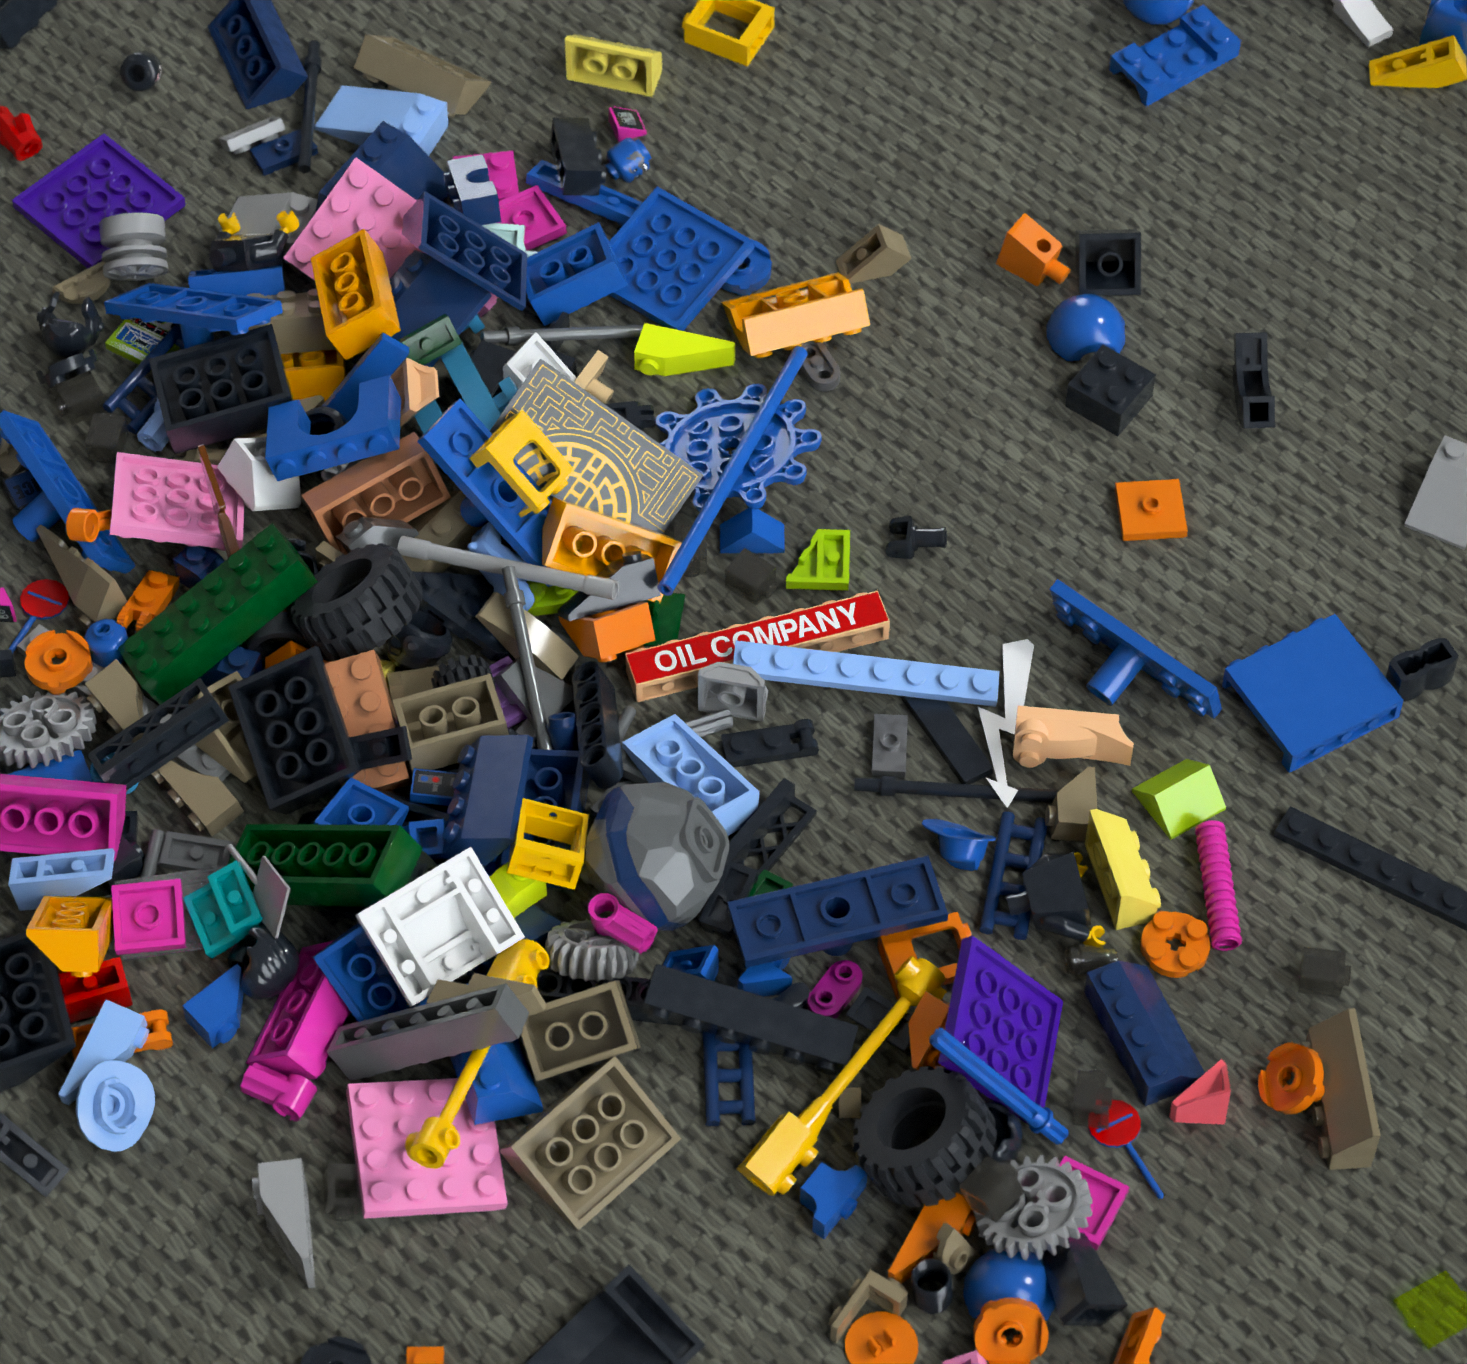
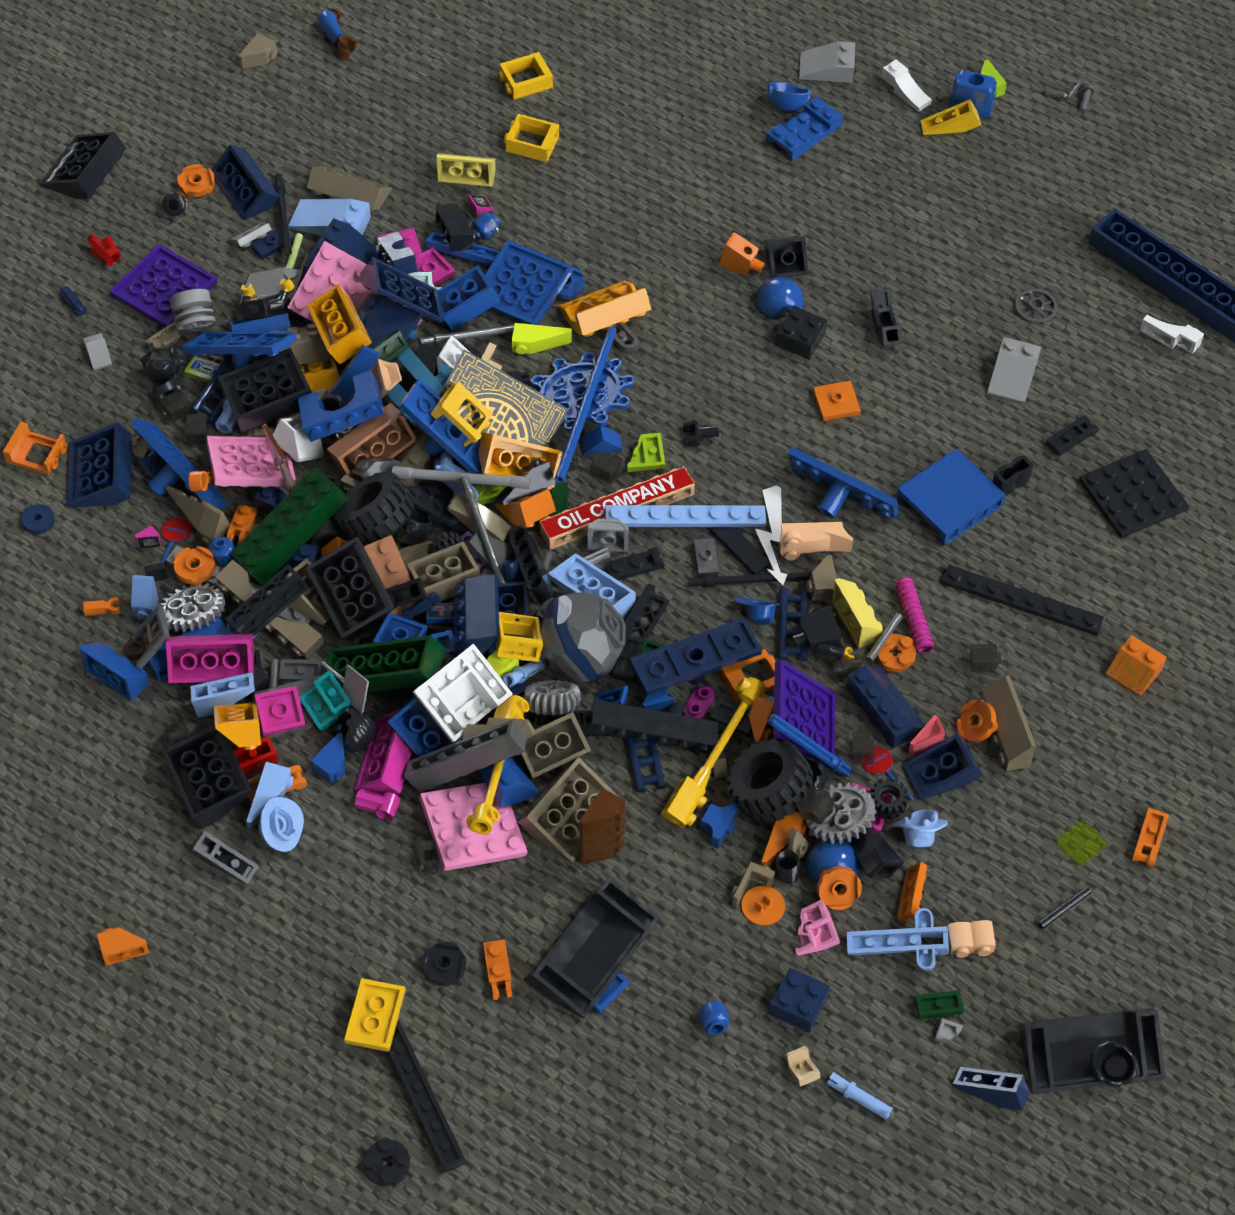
camera: 10 degrees left, 0 degrees up
(179, 24) = (196, 189): none -> orange plate
(284, 1202) = (397, 874): light grey slope -> none
(316, 168) = (295, 248): none -> yellowish green bar
(404, 772) = (421, 606): none -> dark blue axle
(545, 905) = (521, 674): none -> light blue pin
(622, 924) = (570, 679): dark pink piece -> none
(629, 1182) = (602, 828): none -> reddish brown slope
(874, 256) = (645, 268): dark tan slope -> none
(1125, 1173) = (891, 788): none -> black tyre
(1159, 917) = (884, 637): none -> dark grey bar
(1166, 1249) = (921, 827): none -> light blue hat
(1181, 797) = (883, 566): slope -> none
(1222, 1150) = (943, 768): none -> dark blue slope

